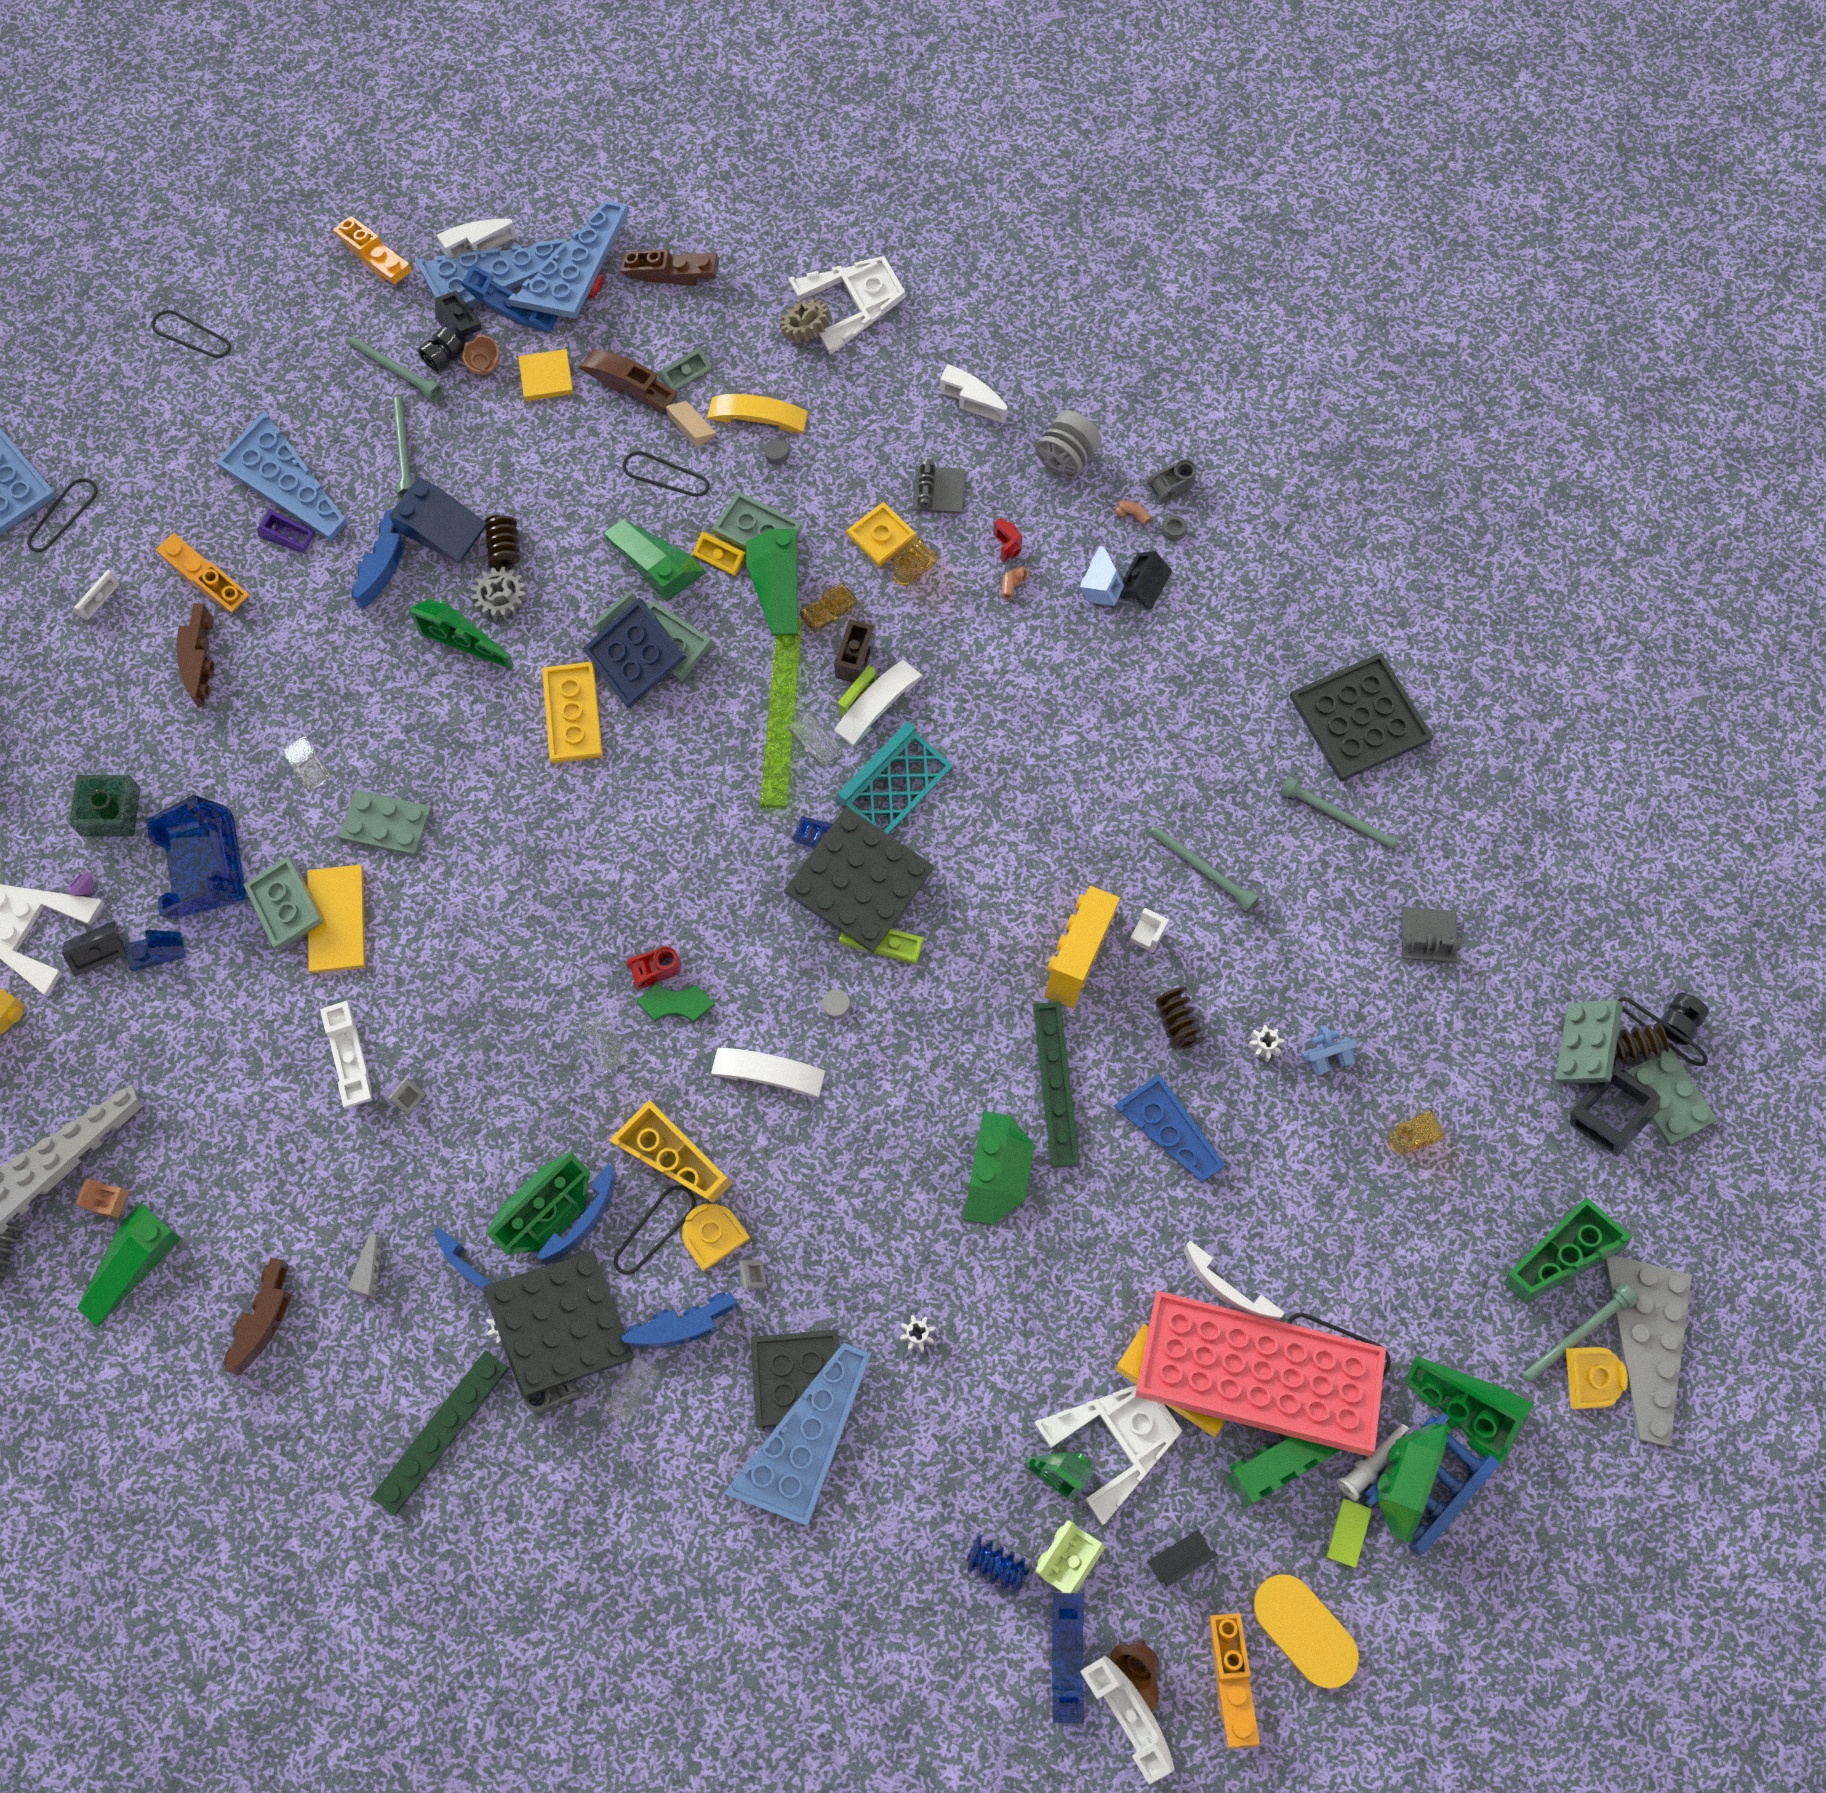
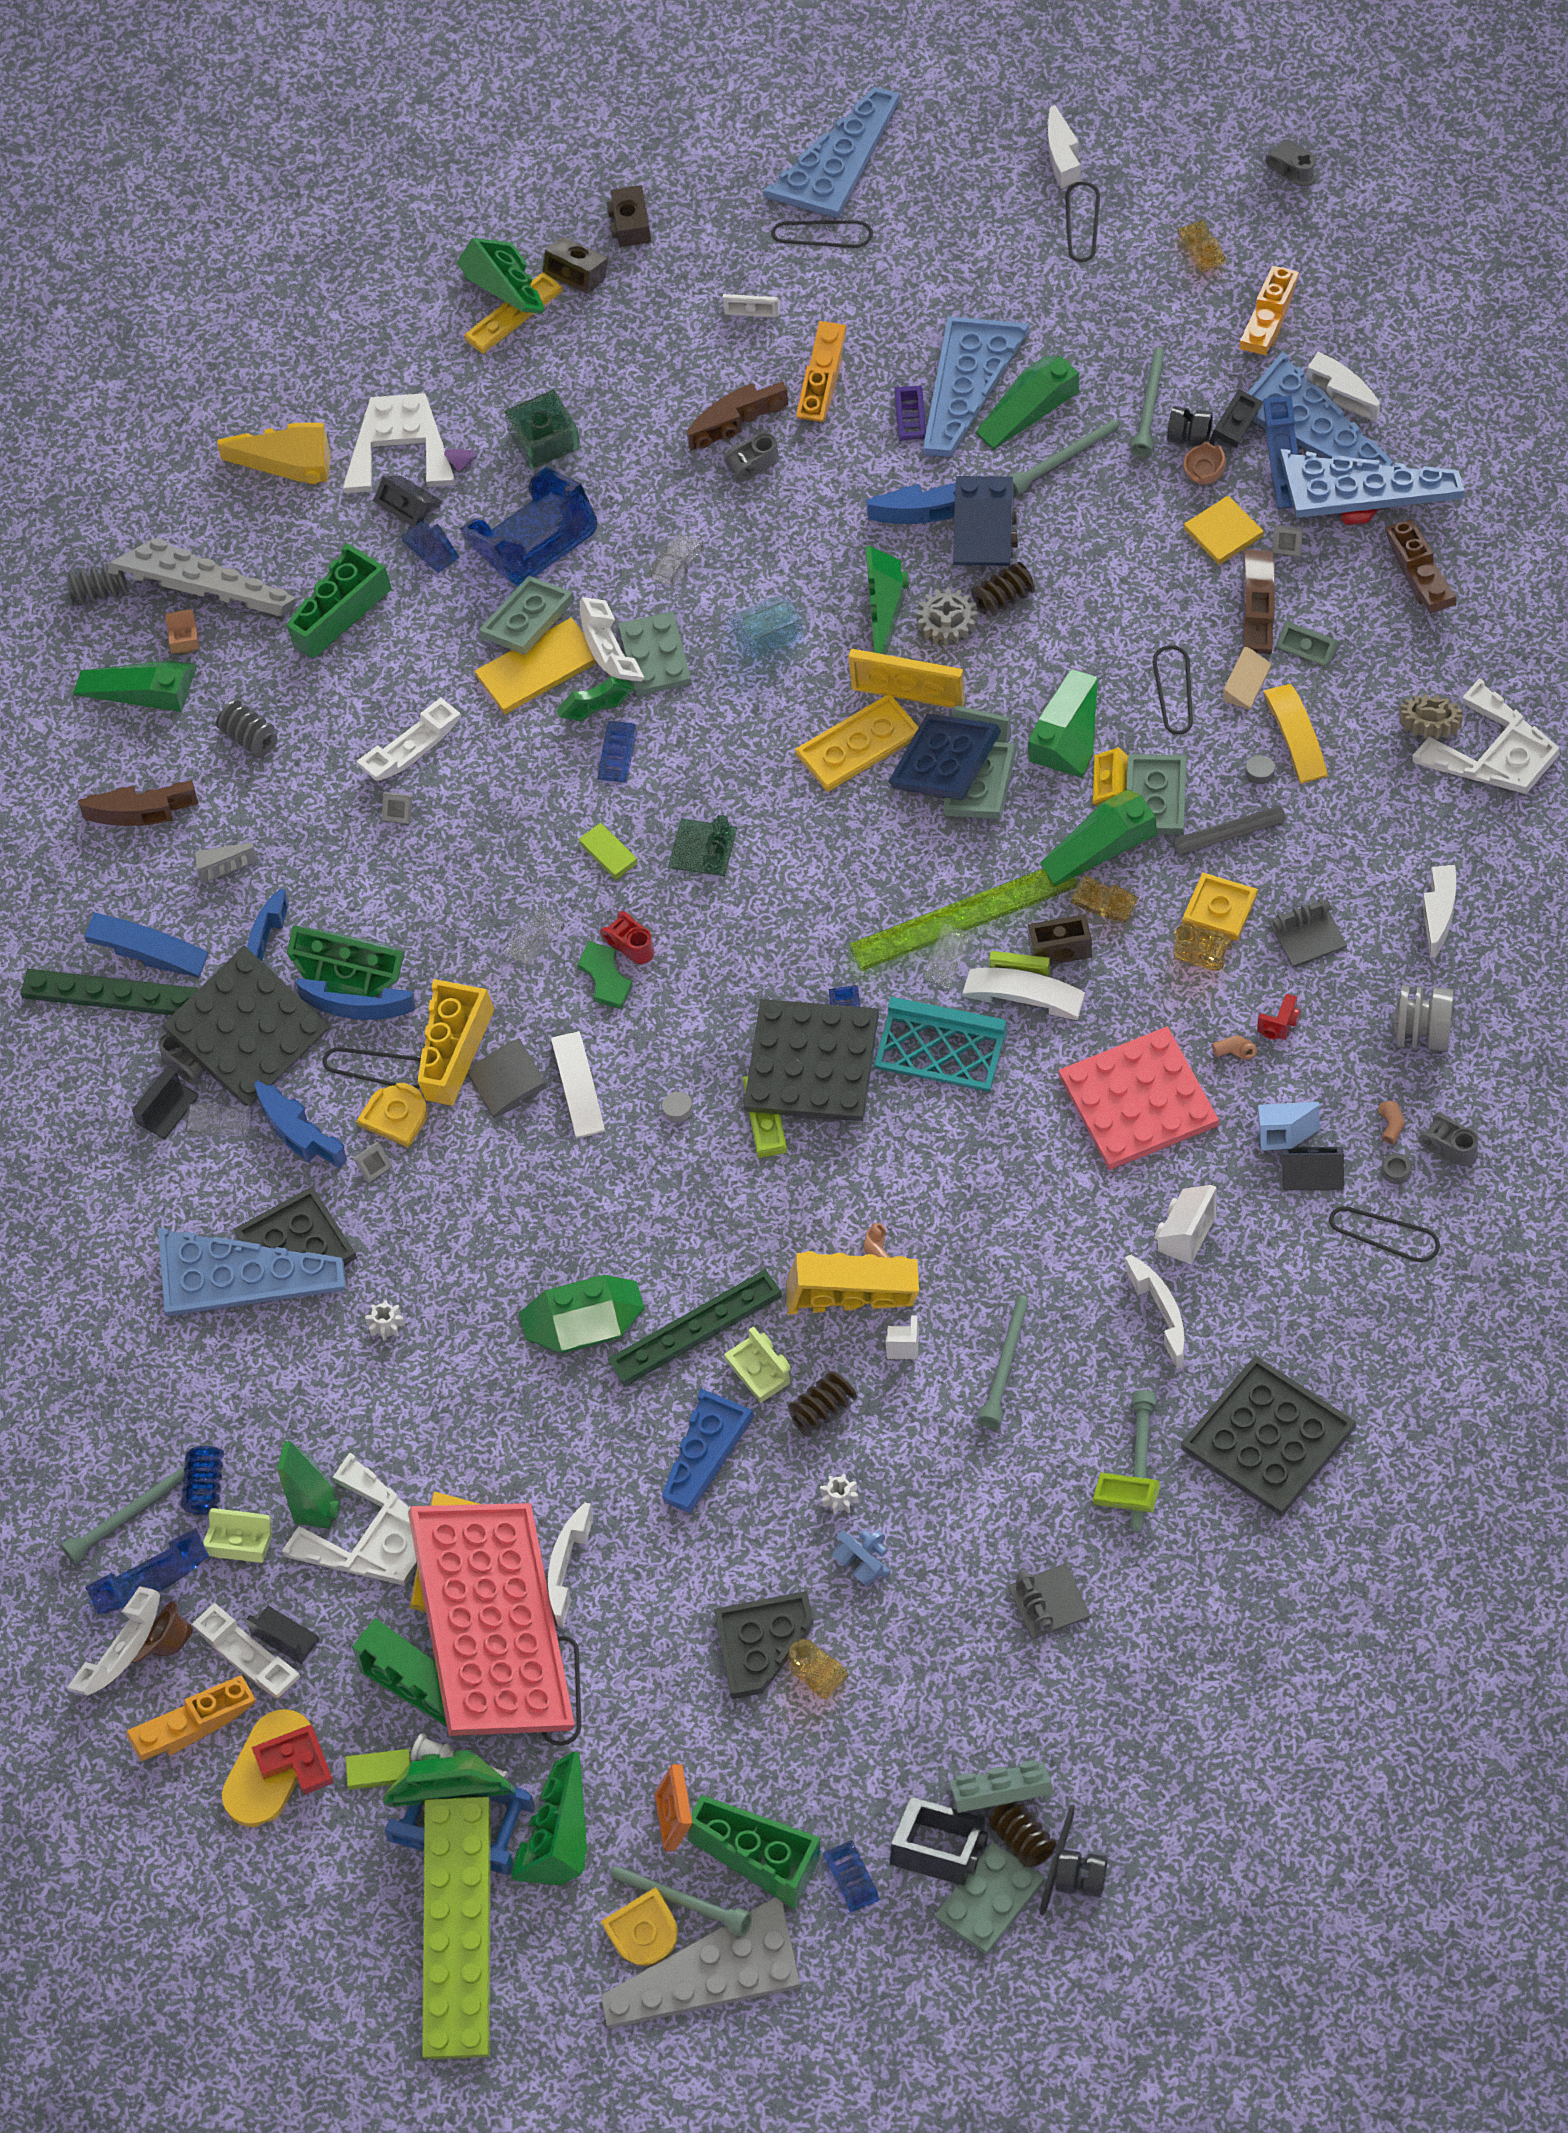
camera: 70 degrees right, 10 degrees down
(115, 312) = (1063, 150): none -> white slope
(163, 1048) = (338, 601): none -> green wedge
(242, 1187) = (247, 728): none -> dark grey piece
(245, 175) = (1293, 163): none -> dark grey piece
(246, 665) = (753, 456): none -> dark grey piece
(283, 268) = (1201, 246): none -> clear yellow slope
(325, 851) = (596, 624): none -> white slope
(330, 441) = (1029, 398): none -> green wedge
(406, 881) = (584, 703): none -> green tile
(414, 1376) = (146, 944): none -> blue slope
(416, 725) = (767, 626): none -> clear light blue slope
(447, 881) = (617, 734): none -> clear blue slope
(544, 646) = (906, 679): none -> yellow tile
(556, 946) = (608, 851): none -> lime tile
(586, 337) = (1287, 540): none -> light grey slope
(591, 1431) = (164, 1104): none -> black panel
(598, 871) = (703, 846): none -> clear green hinge
(732, 1126) = (506, 1078): none -> dark grey slope
(818, 496) = (1229, 830): none -> dark grey axle
(1007, 1712) = (77, 1548): none -> sand green piece
(1018, 667) = (1138, 1098): none -> coral plate
(1048, 914) = (875, 1240): none -> nougat arm
(1117, 1050) = (759, 1365): none -> yellowish green bracket
(1156, 681) = (1187, 1223): none -> white slope
(1188, 1600) = (244, 1652): none -> white slope
(1228, 572) = (1434, 1236): none -> black piece
(1251, 739) = (1145, 1280): none -> white slope
(1312, 1596) = (297, 1751): none -> red plate
(1365, 835) = (1126, 1492): none -> lime tile
(1368, 1165) = (759, 1637): none -> pearl dark grey plate
(1504, 1301) = (673, 1807): none -> orange tile
(1542, 1533) = (456, 1928): none -> lime plate
(1630, 1181) = (858, 1894): none -> clear blue slope

